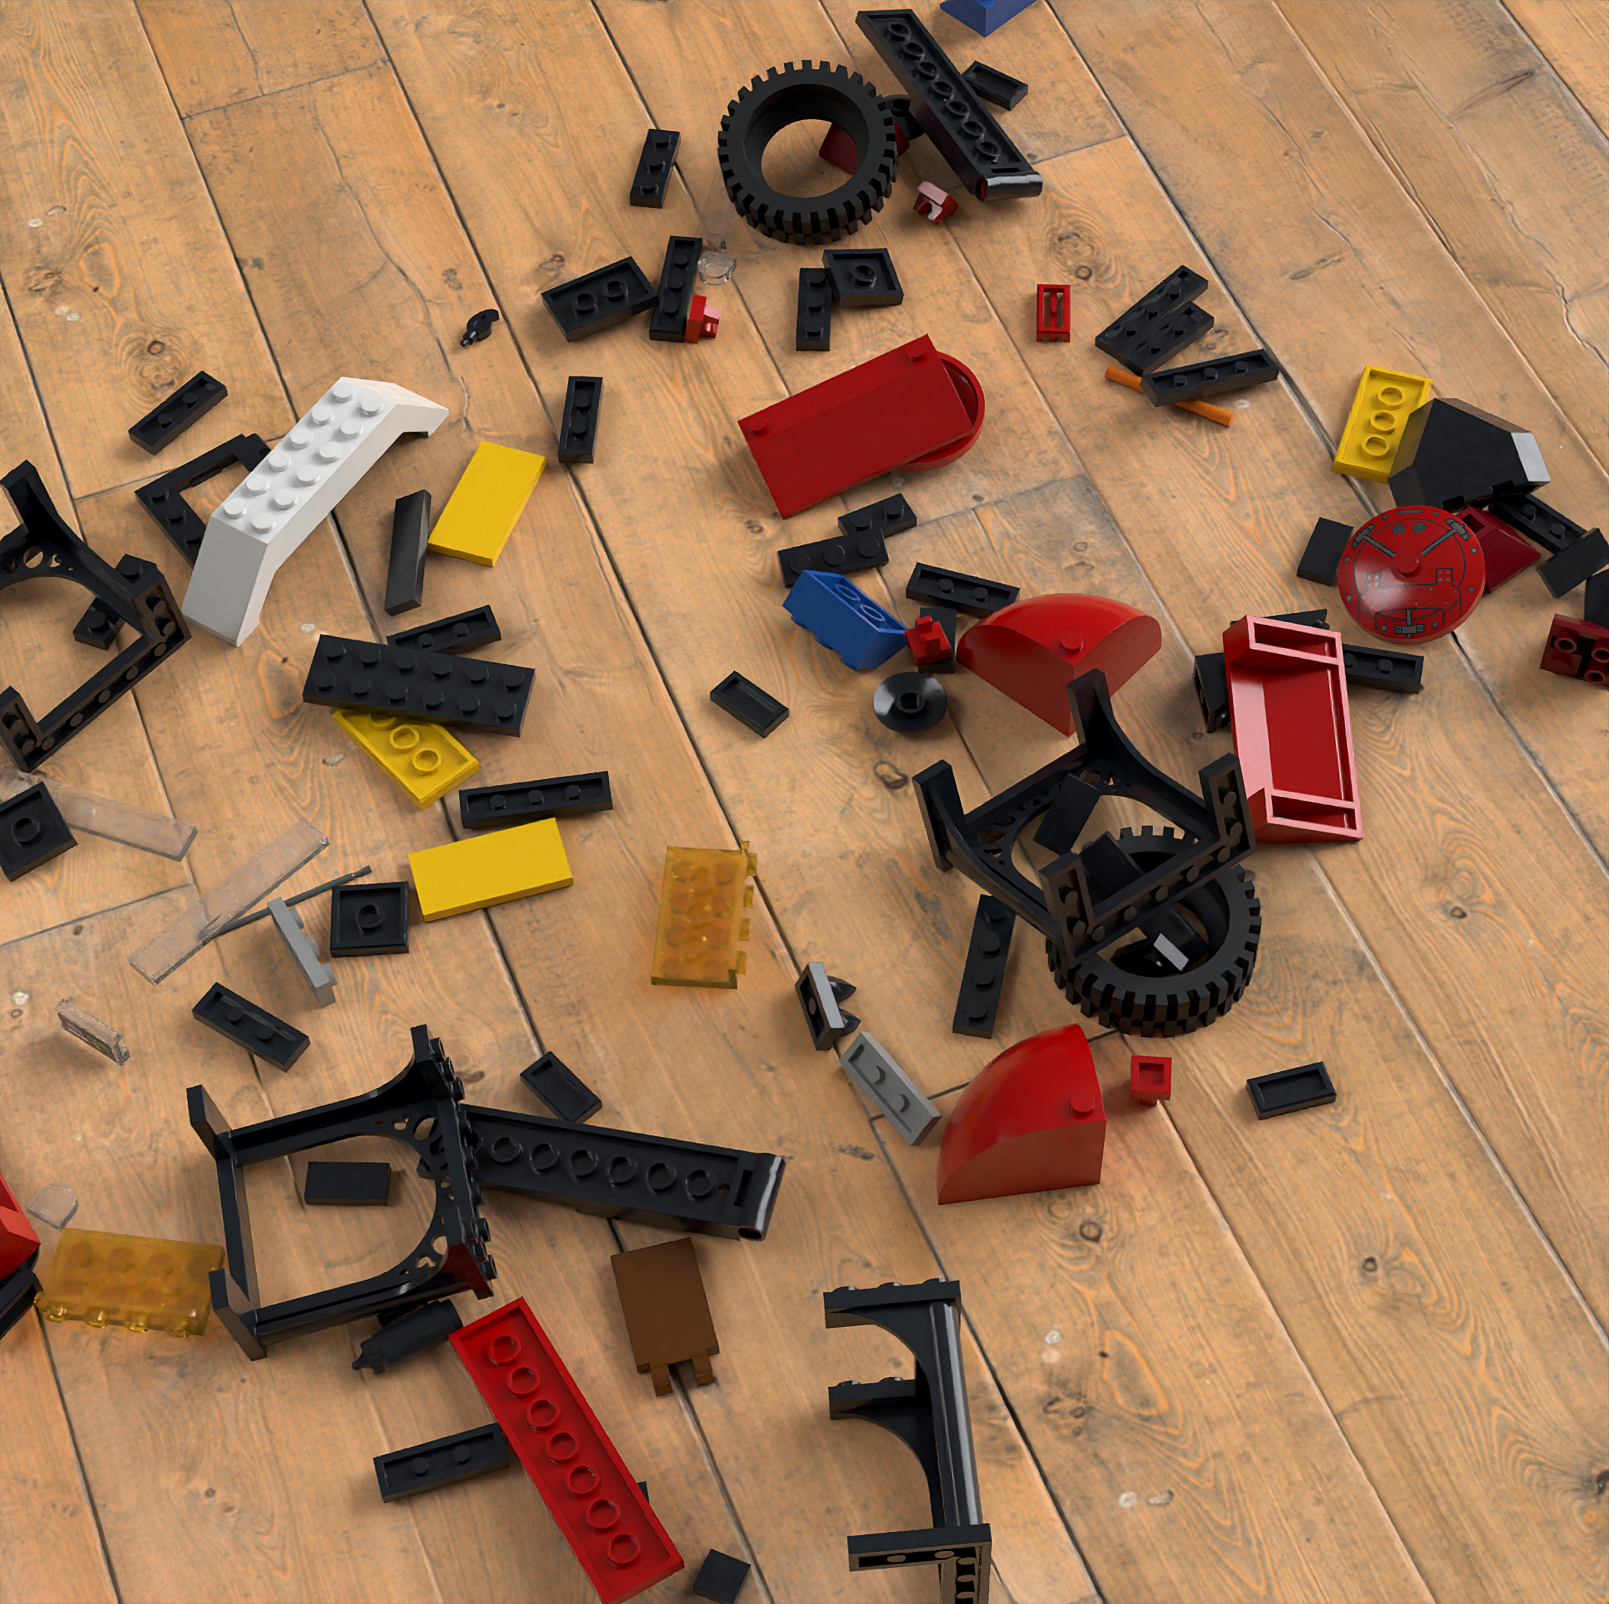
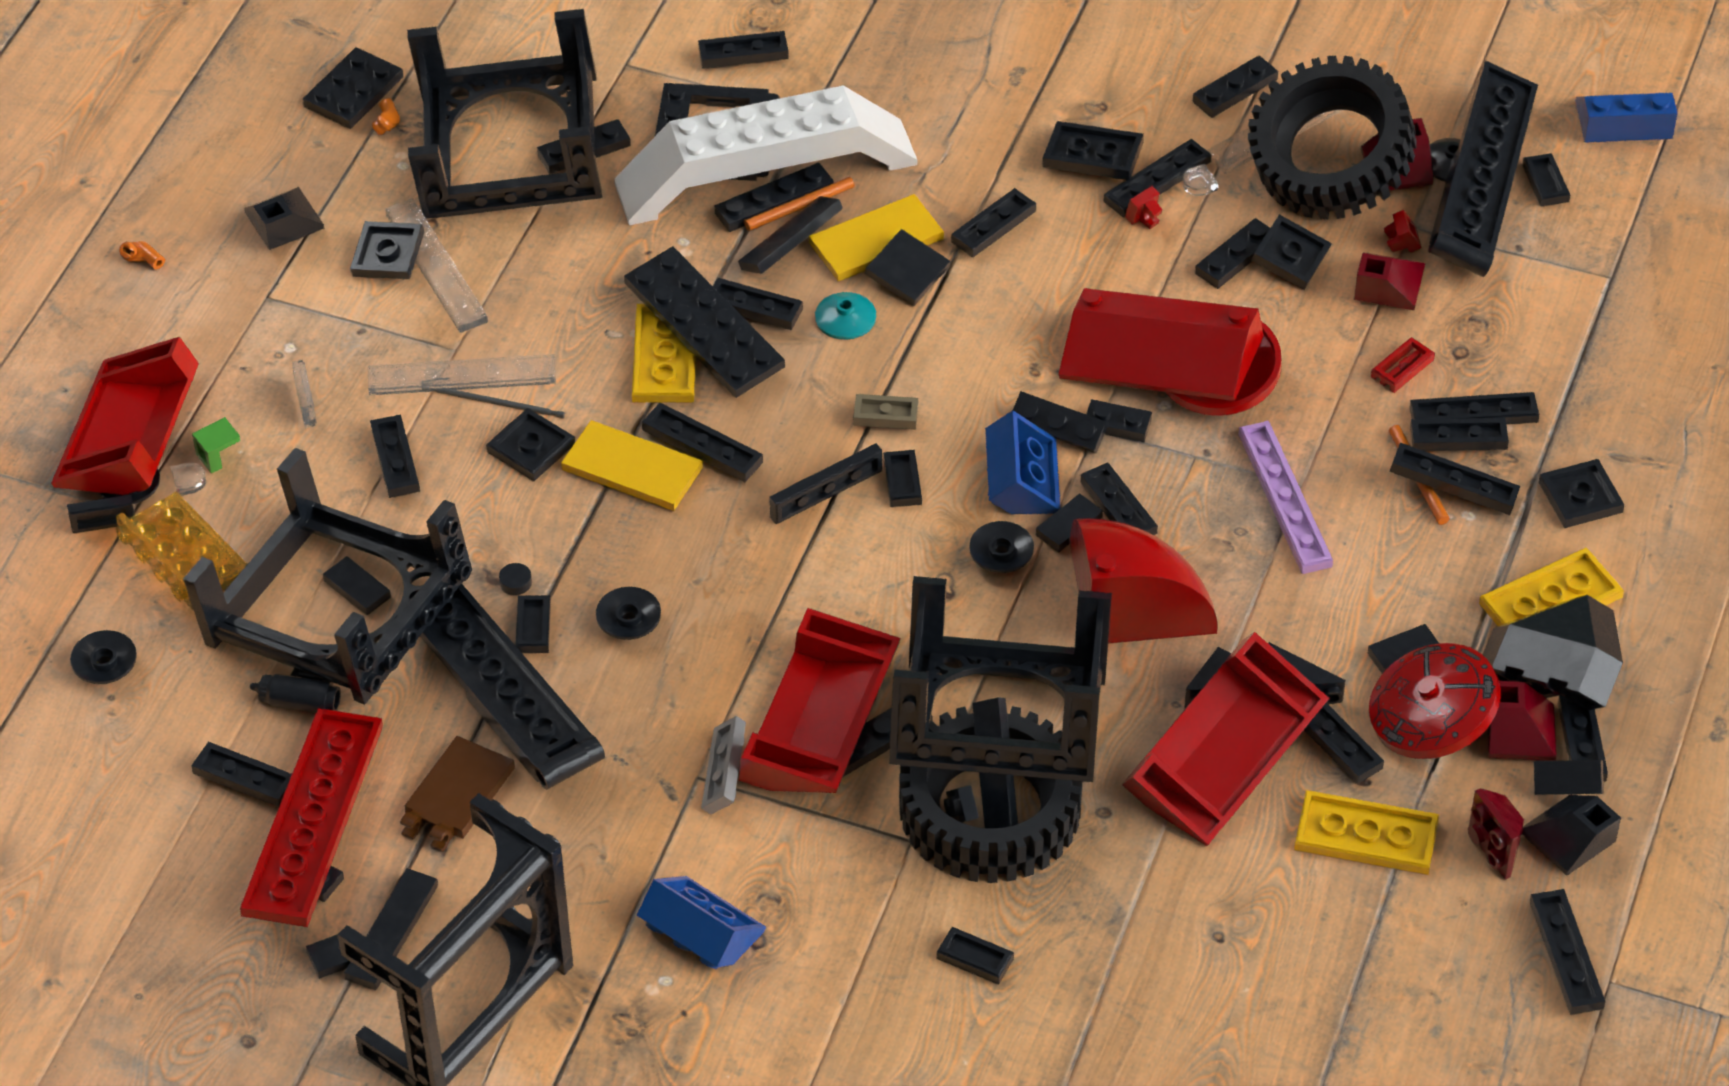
camera: 40 degrees right, 5 degrees down
(51, 1148) = (212, 440): none -> bright green panel
(158, 1442) = (103, 657): none -> black dish
(303, 951) = (468, 433): light grey plate -> none
(351, 530) = (771, 195): none -> black plate
(381, 520) = (798, 204): none -> orange bar
(479, 326) = (998, 118): black piece -> none
(497, 1059) = (515, 579): none -> black tile
(534, 603) = (845, 315): none -> teal dish
(549, 510) = (907, 267): none -> black tile
(646, 998) = (628, 613): none -> black dish
(672, 653) = (885, 411): none -> dark tan plate
(693, 757) = (826, 483): none -> black tile
(704, 917) = (726, 583): clear yellow bracket -> none
(752, 1500) = (396, 920): none -> black tile
(818, 1000) = (749, 680): black tile -> none
(920, 967) = (819, 706): none -> red slope
(927, 642) = (1054, 516): red tile -> none
(967, 249) = (1388, 281): none -> dark red slope
(1026, 1122) = (779, 841): red brick -> none
(1032, 1254) = (699, 920): none -> blue slope
(1067, 814) = (1019, 681): black tile -> none
(1086, 490) = (1285, 497): none -> lavender tile
(1150, 1079) = (887, 877): red tile -> none
(1308, 323) = (1581, 493): none -> black tile
(1470, 729) = (1366, 832): none -> yellow tile

